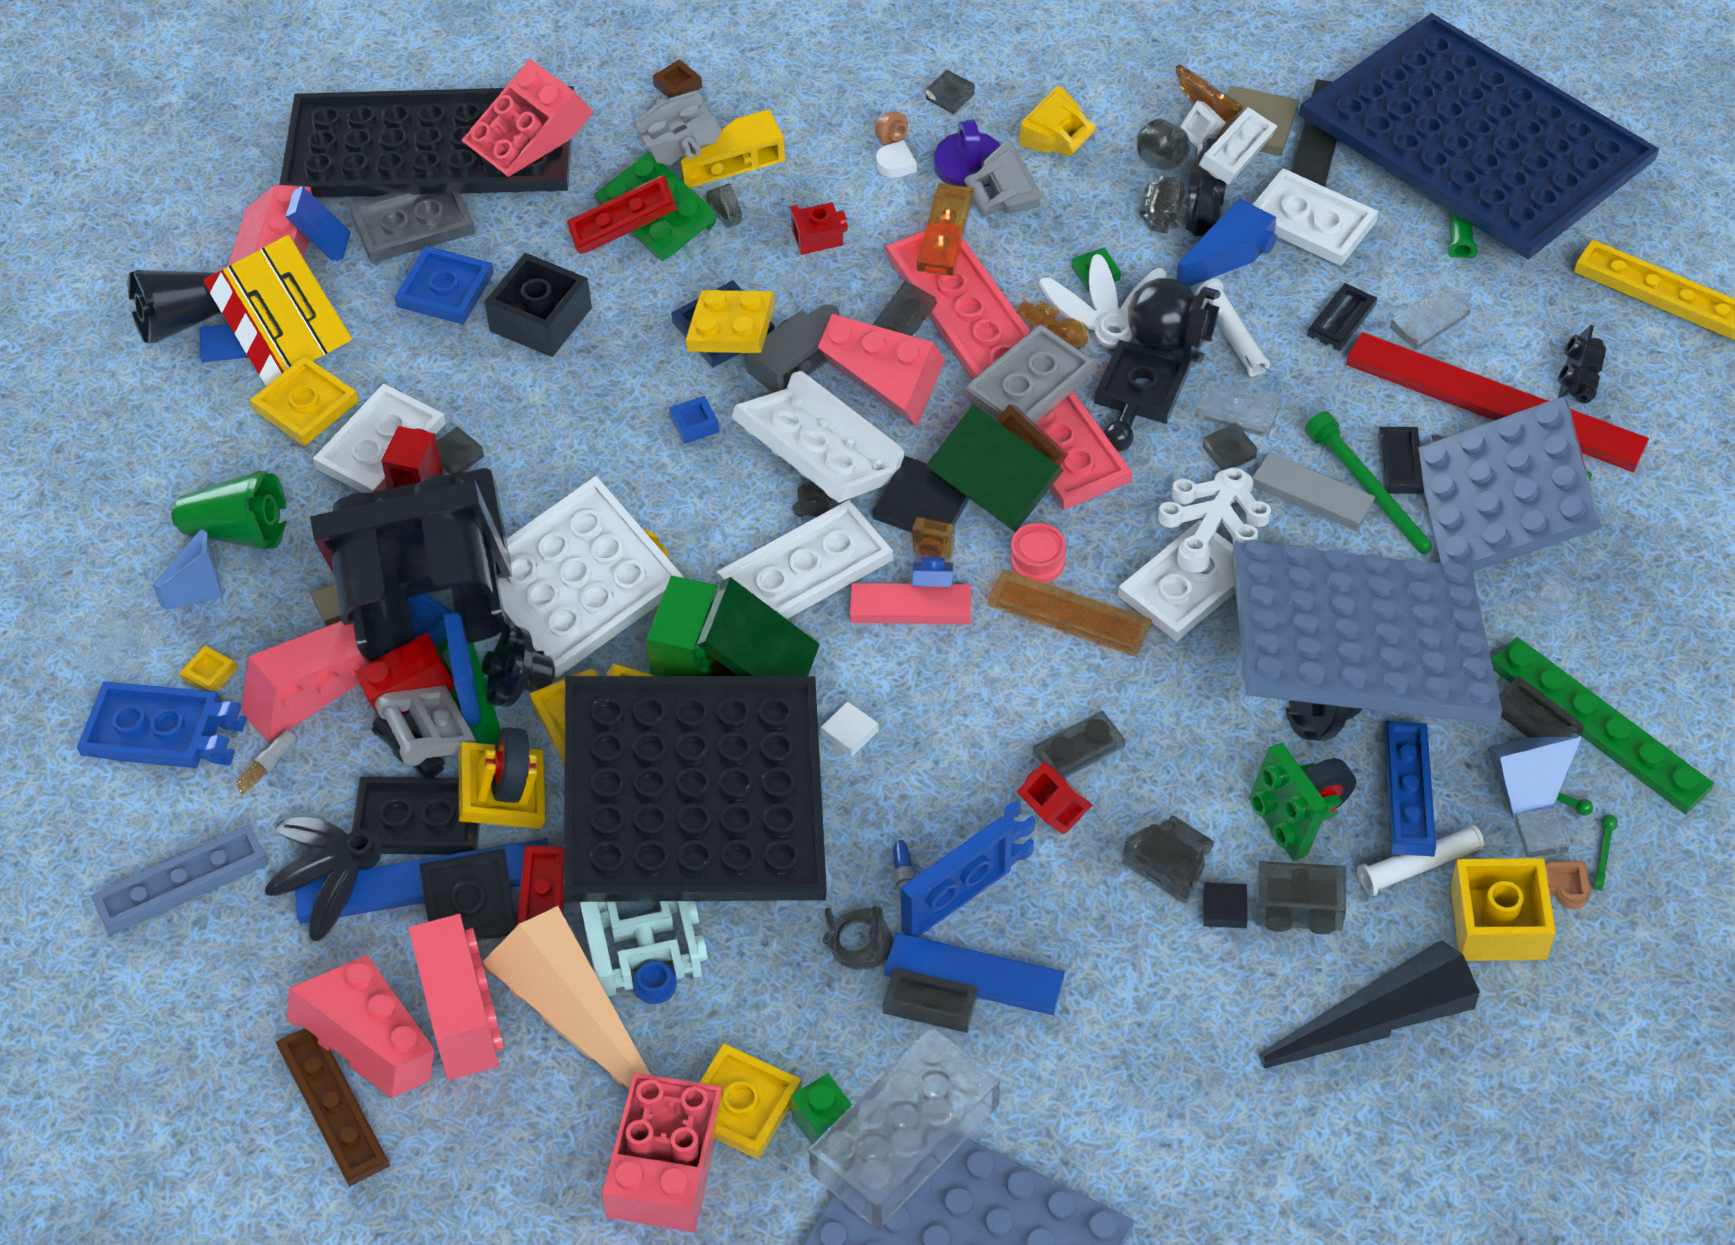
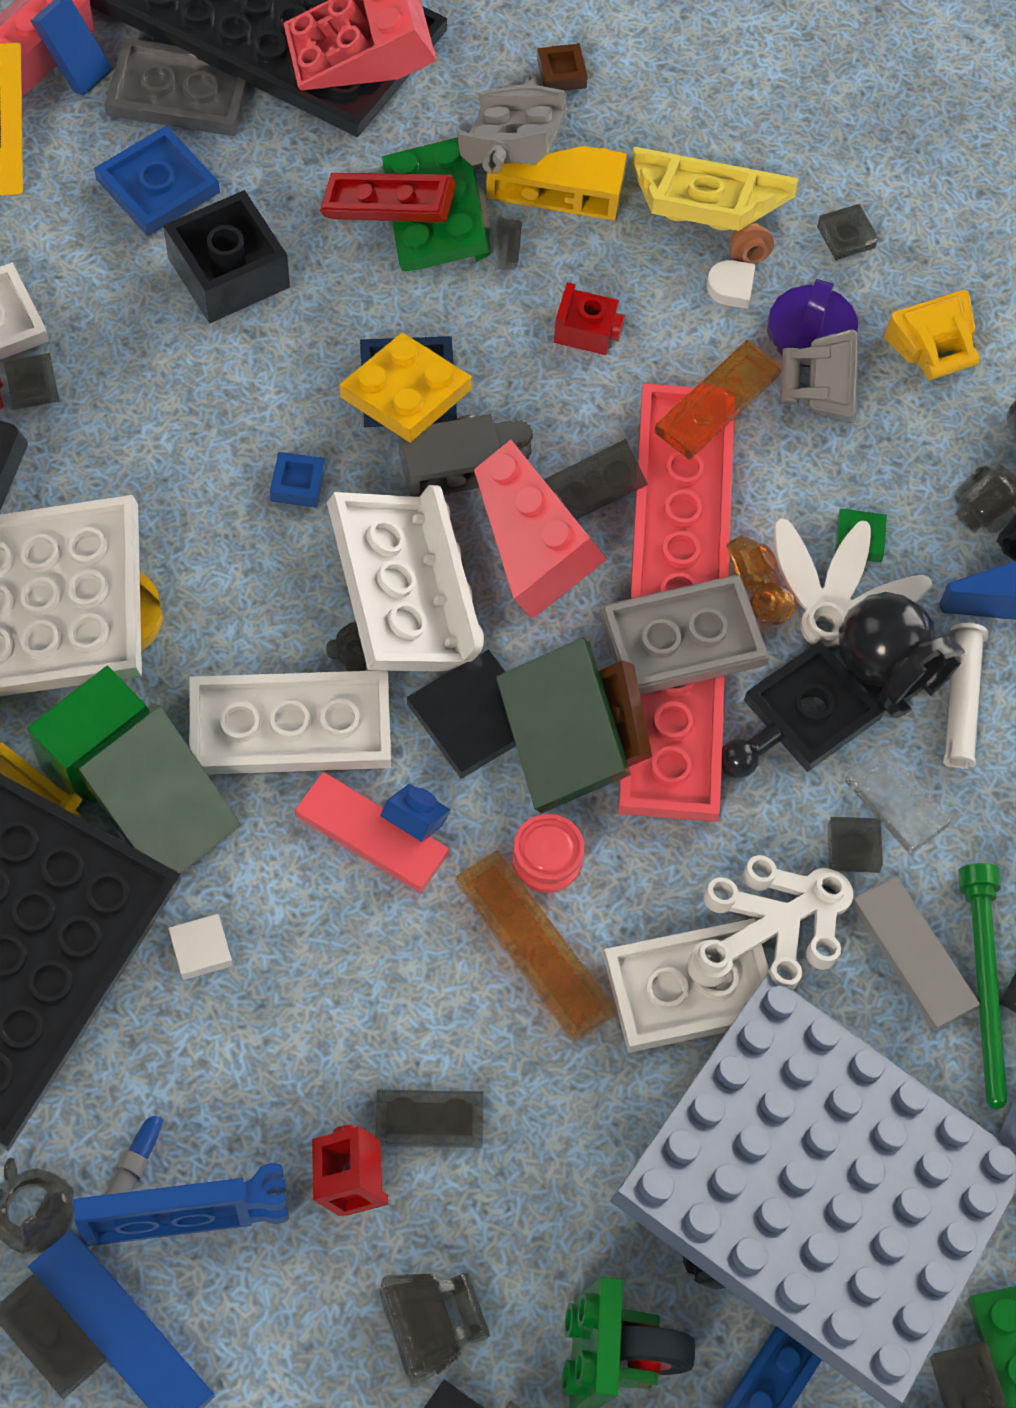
camera: 25 degrees right, 10 degrees up
(837, 109) = (708, 190): none -> light yellow wing
(933, 538) = (444, 770): clear orange plate -> none

